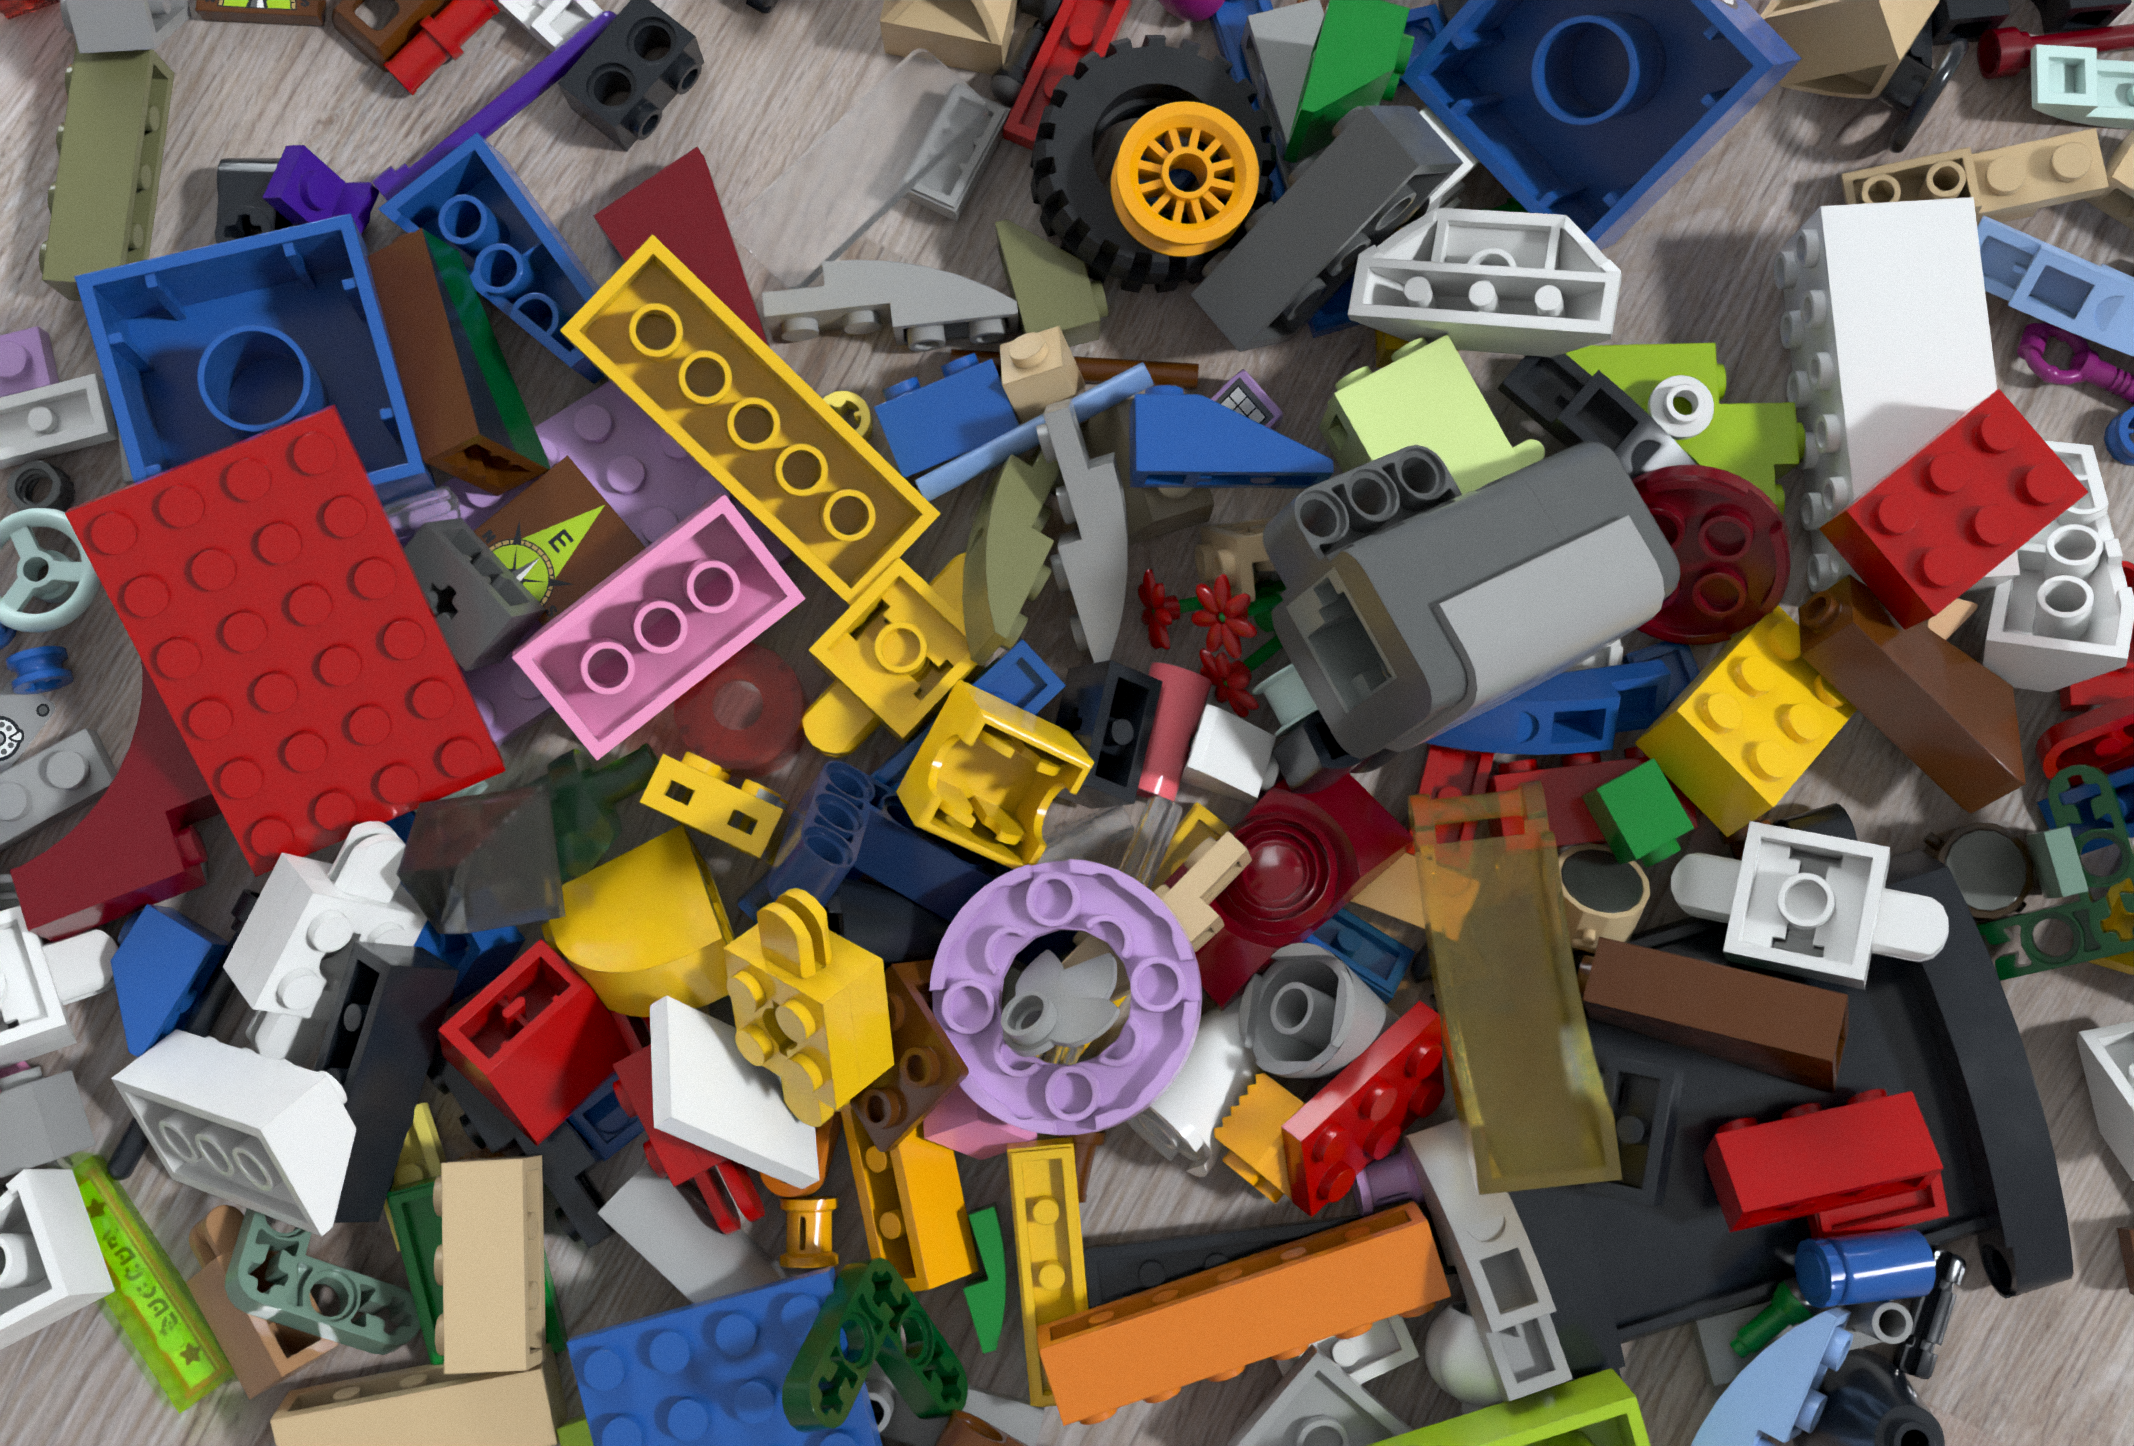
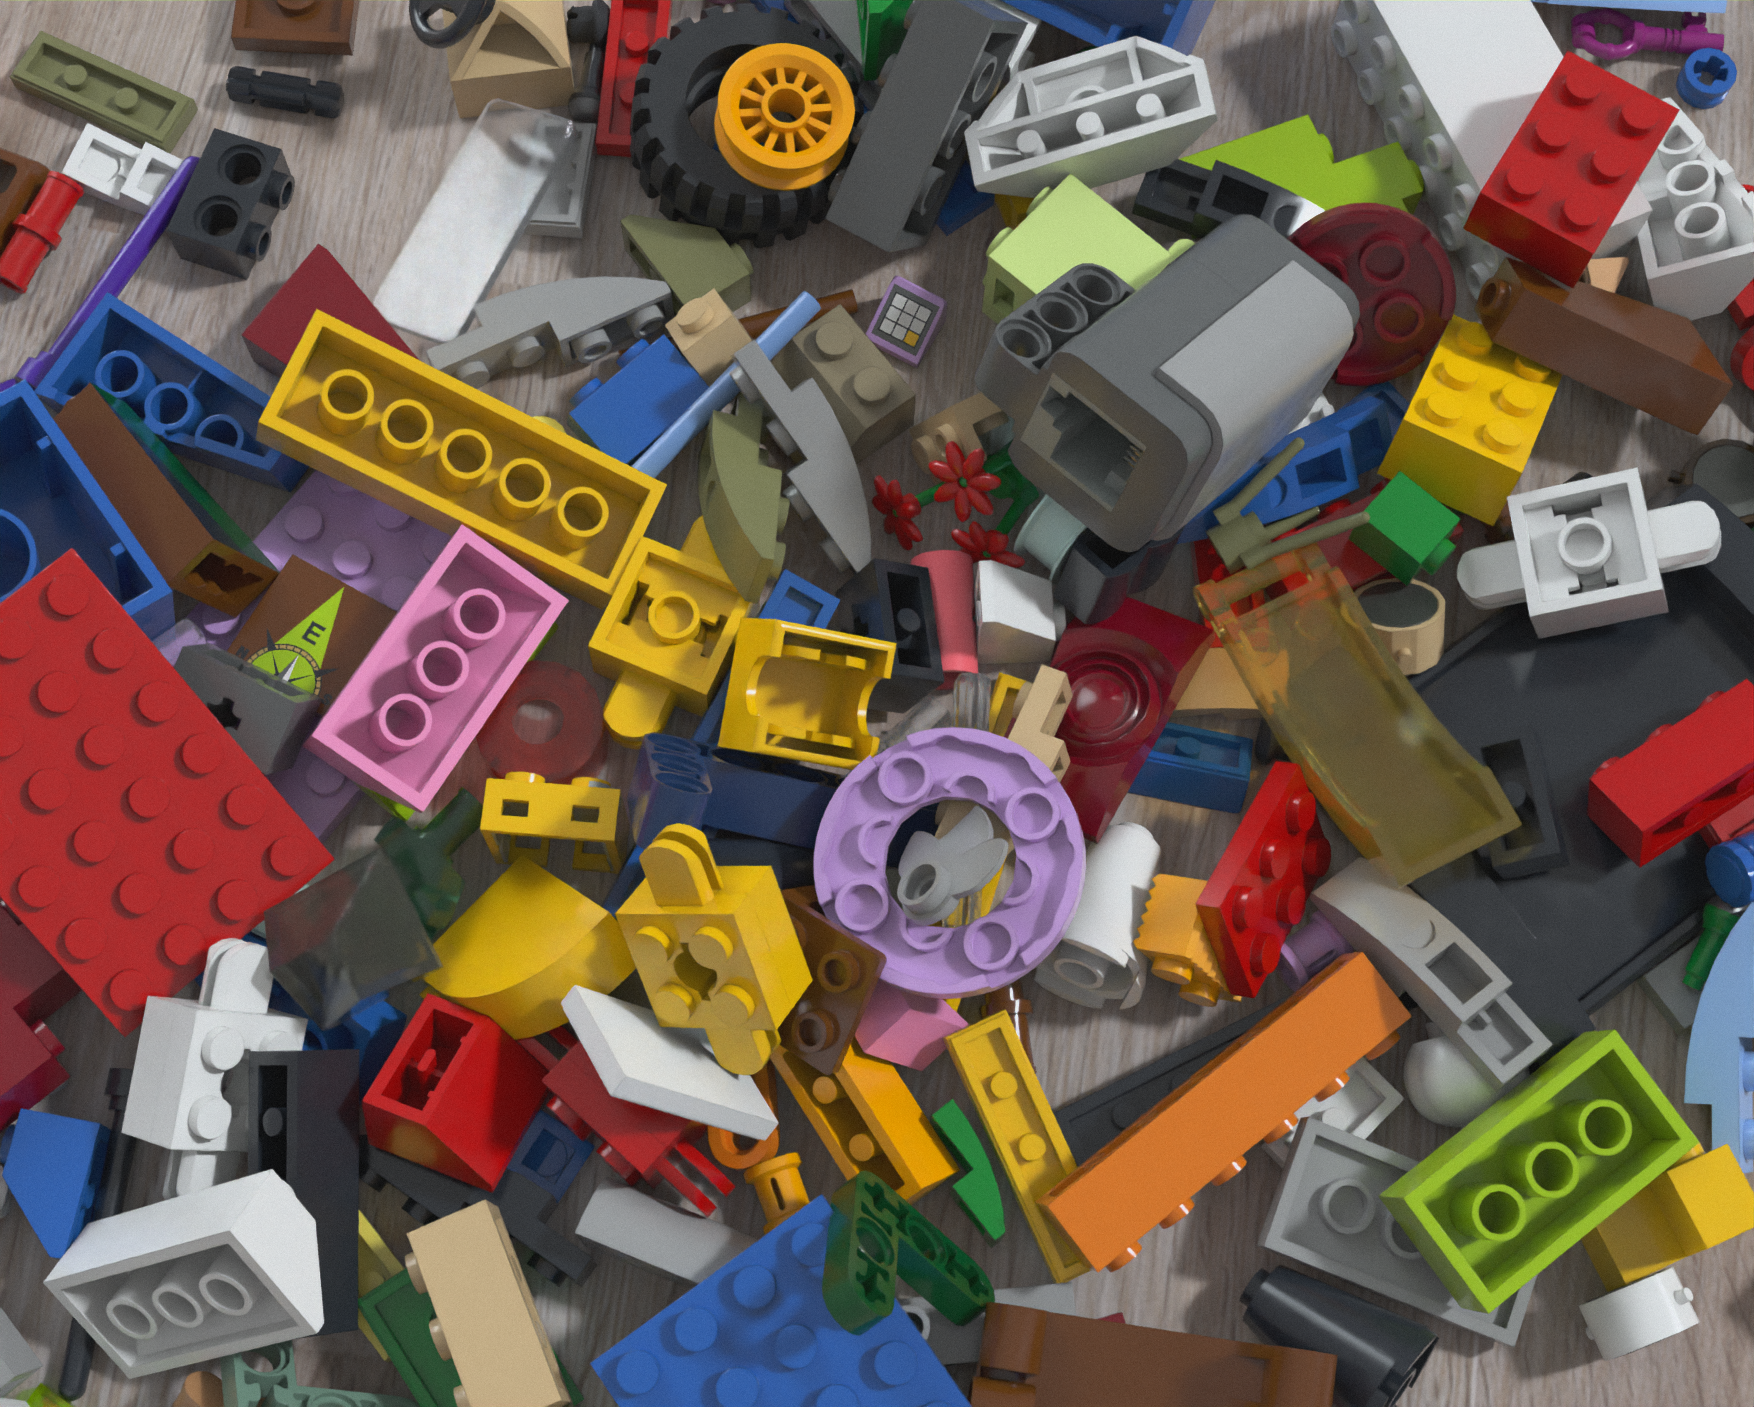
camera: 20 degrees left, 10 degrees down
(1202, 444) = (894, 338): blue slope -> none
(1310, 1014) = (1179, 806): light grey cone -> none
(1474, 763) = (1245, 541): none -> olive plant
(1675, 424) = (1303, 158): white plate -> none
(1719, 1011) = (1551, 672): reddish brown slope -> none

